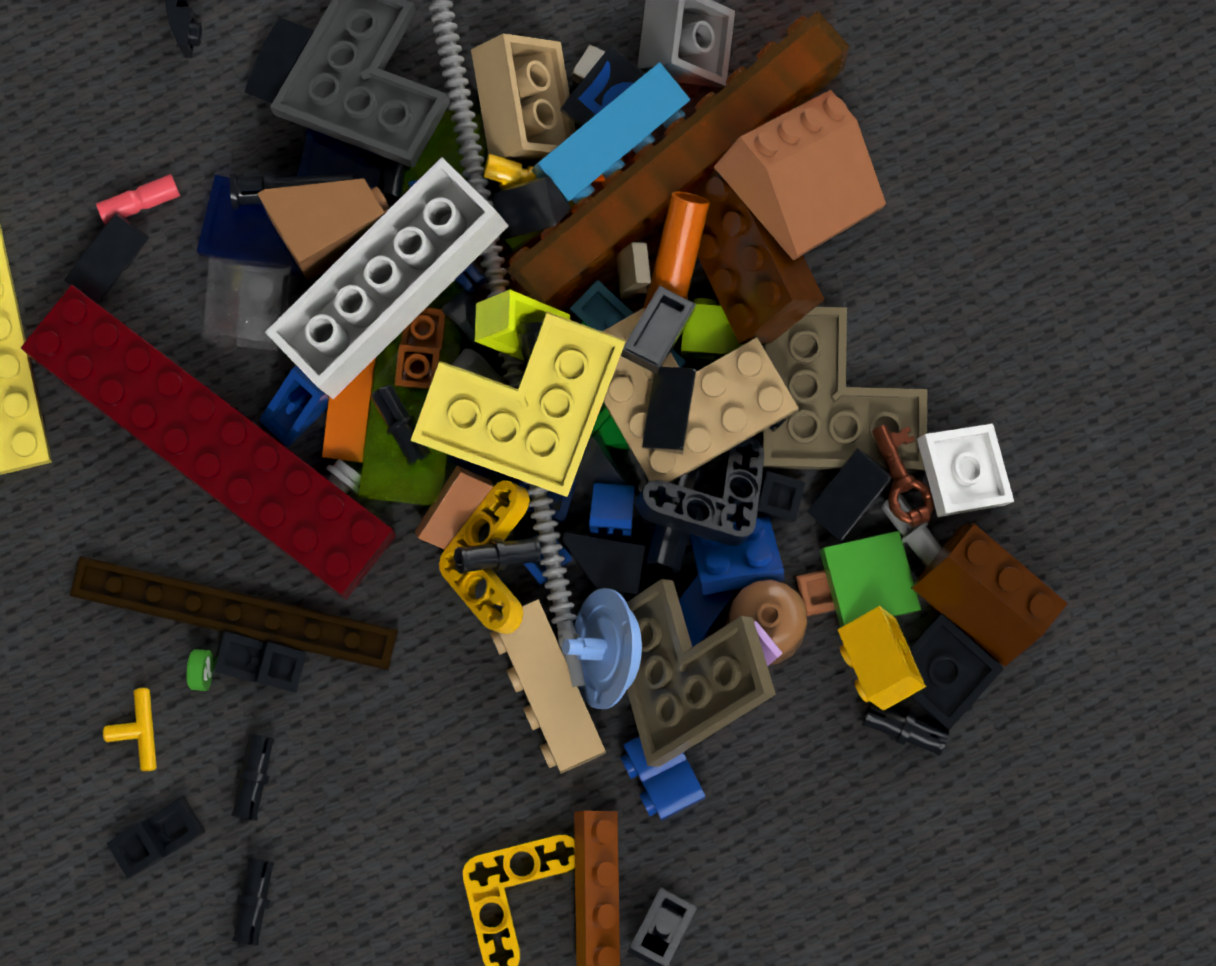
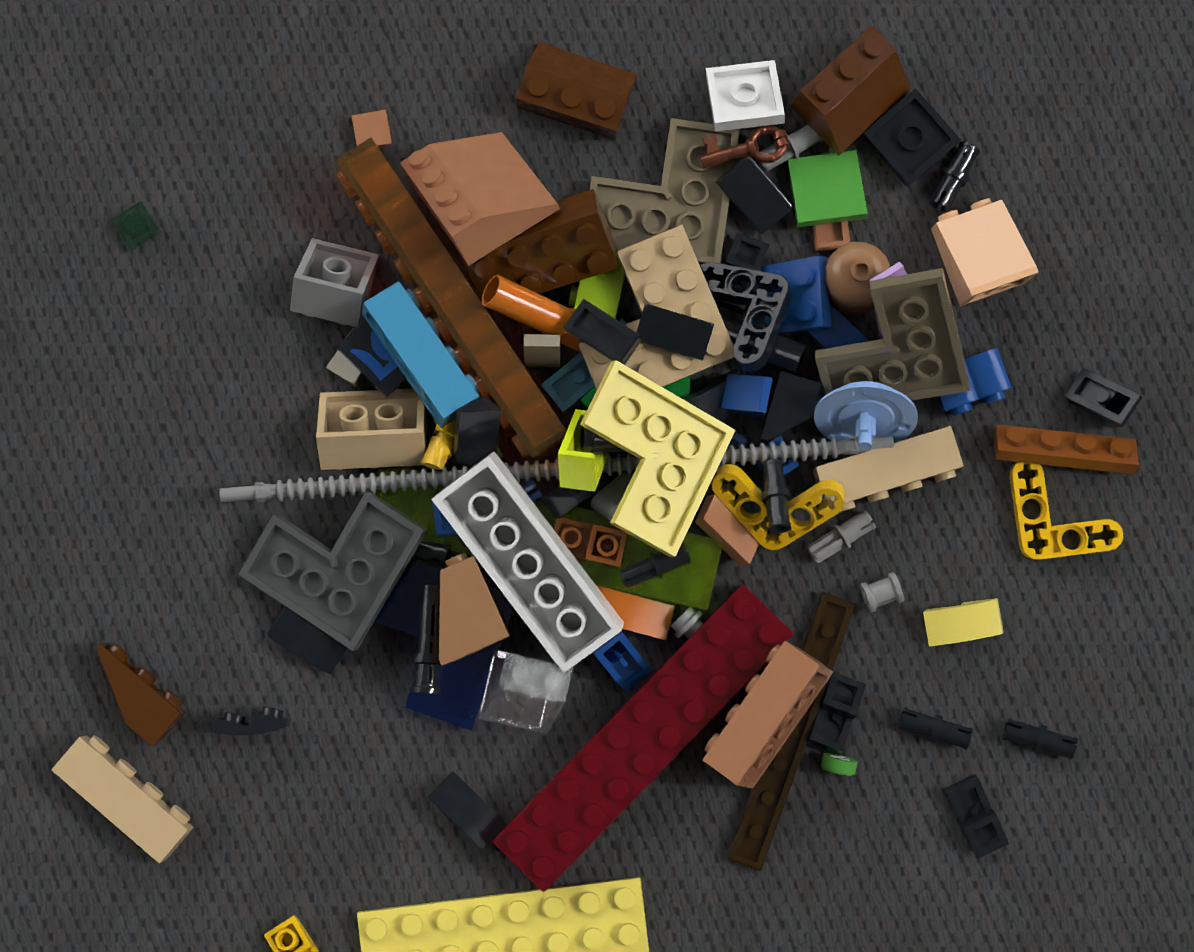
camera: 90 degrees left, 5 degrees up
(140, 730) = (883, 820): yellow piece -> none
(143, 197) = (415, 775): coral piece -> none
(244, 573) = (766, 715): none -> nougat brick
(378, 796) = (963, 622): none -> light yellow slope
(403, 697) = (882, 592): none -> light grey bush
(463, 643) = (841, 536): none -> light grey axle
(819, 766) = (982, 251): none -> light nougat slope
(868, 60) = (372, 125): none -> nougat tile
(880, 659) = (899, 187): yellow brick -> none
(946, 279) = (575, 90): none -> reddish brown slope

